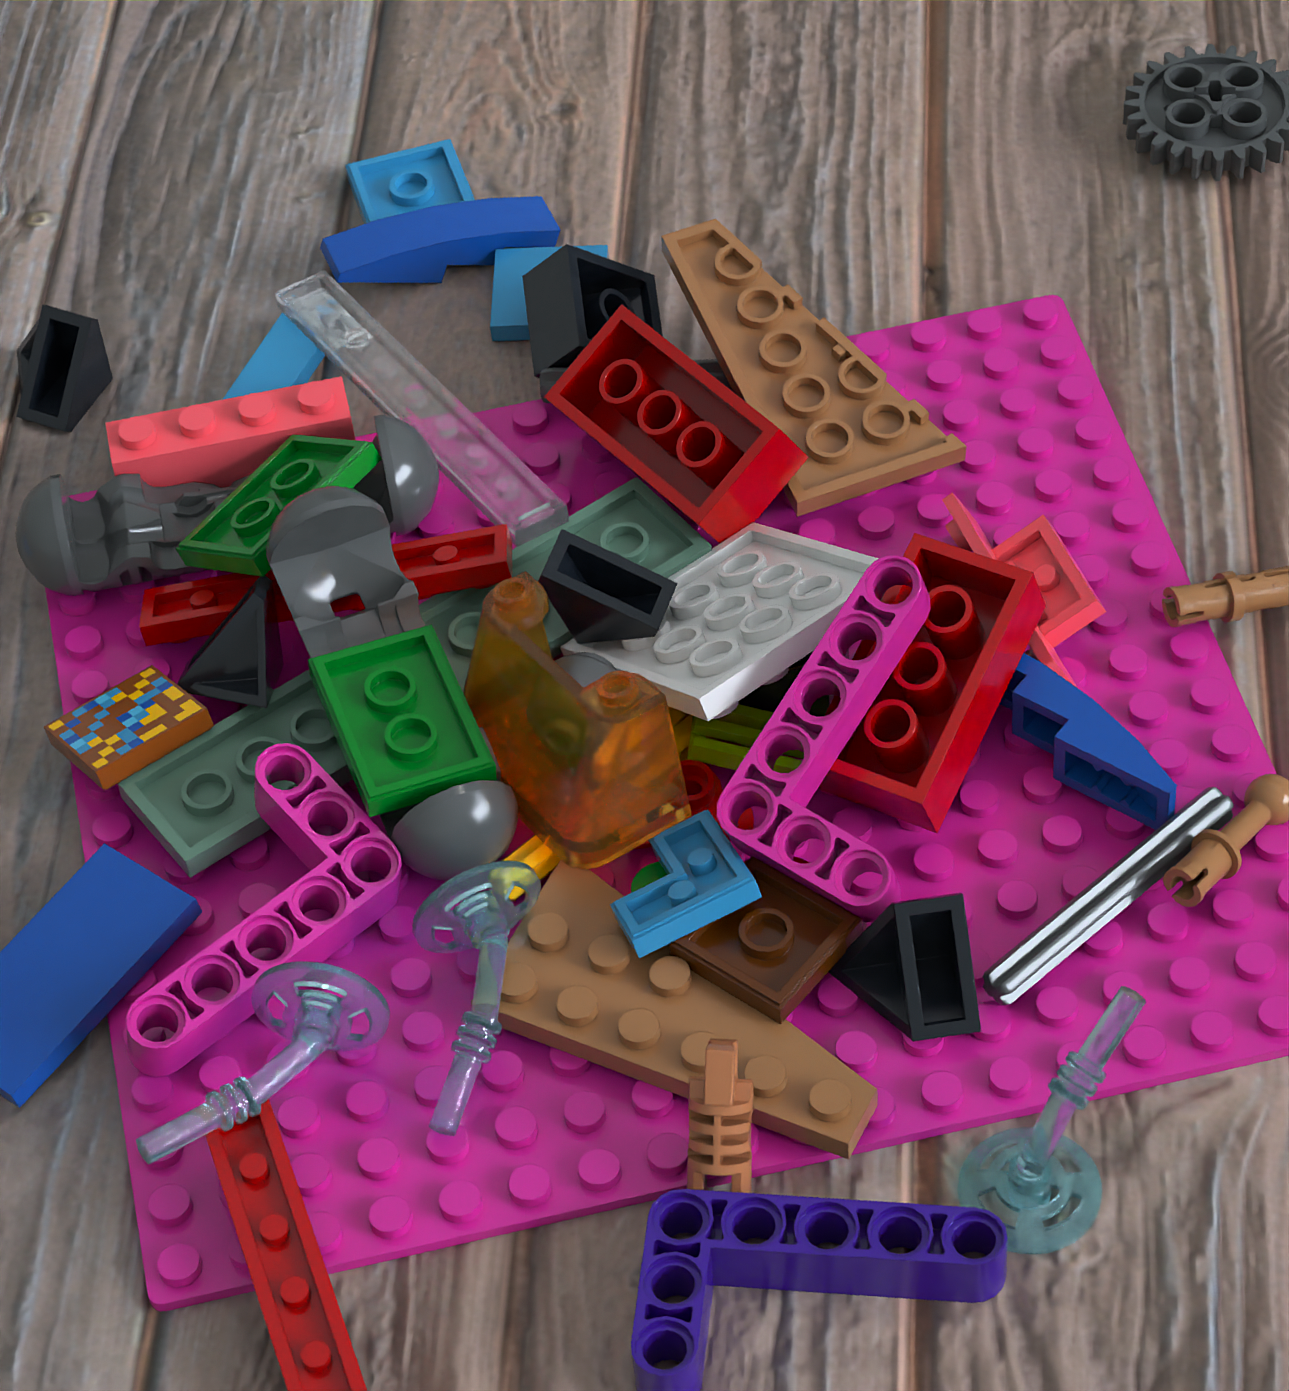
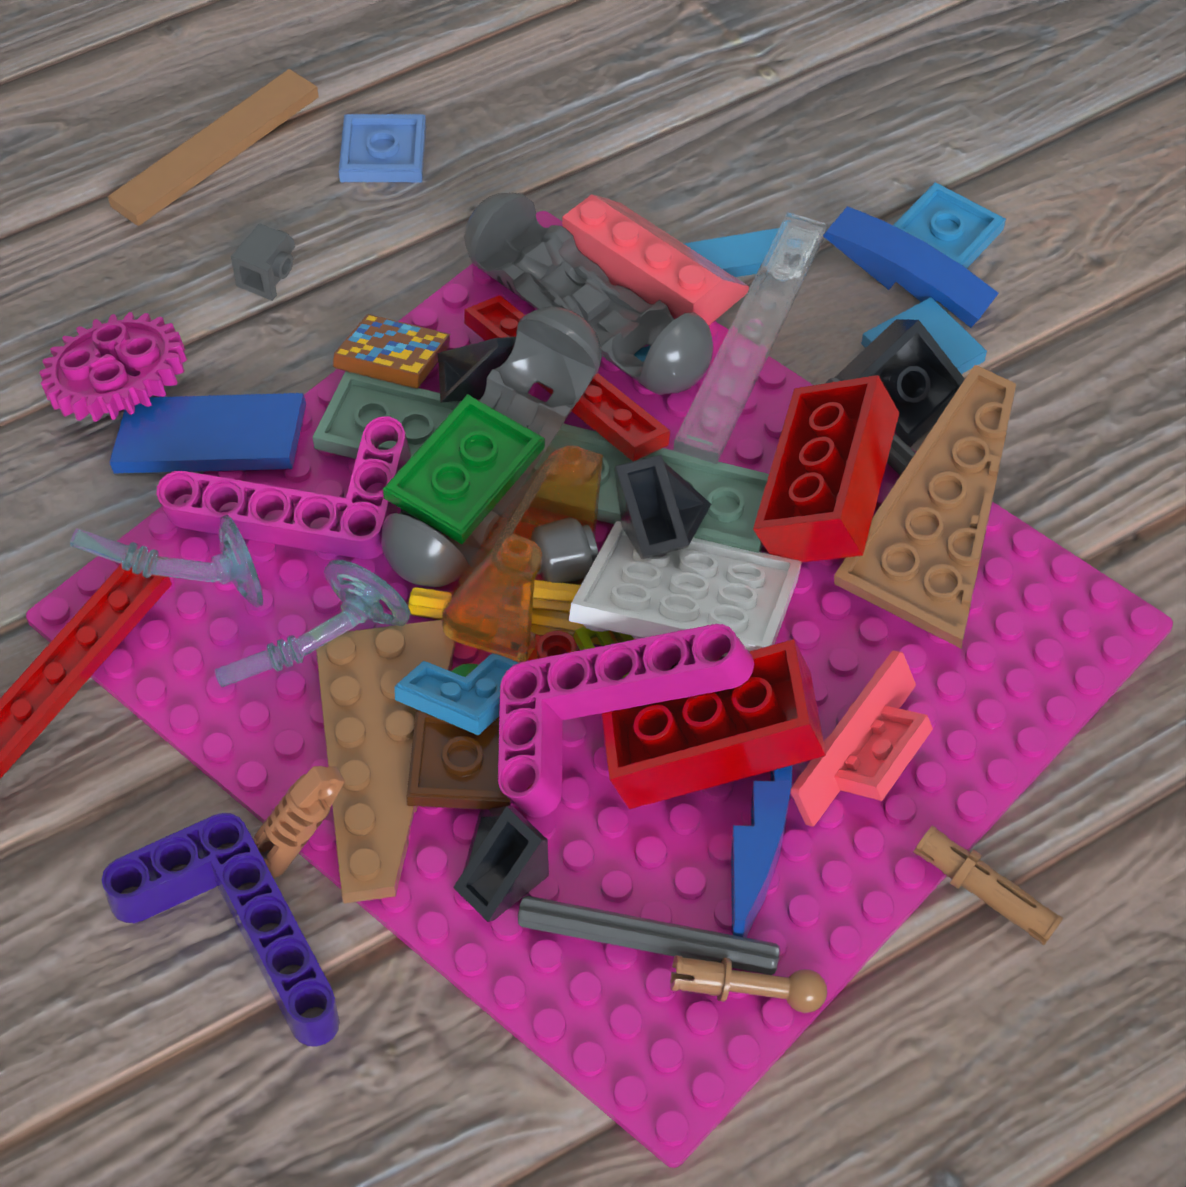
camera: 50 degrees right, 5 degrees up
(61, 368) = (643, 158): black slope -> none
(238, 529) = (607, 308): green tile -> none
(1032, 1166) = (402, 1014): clear light blue dish -> none

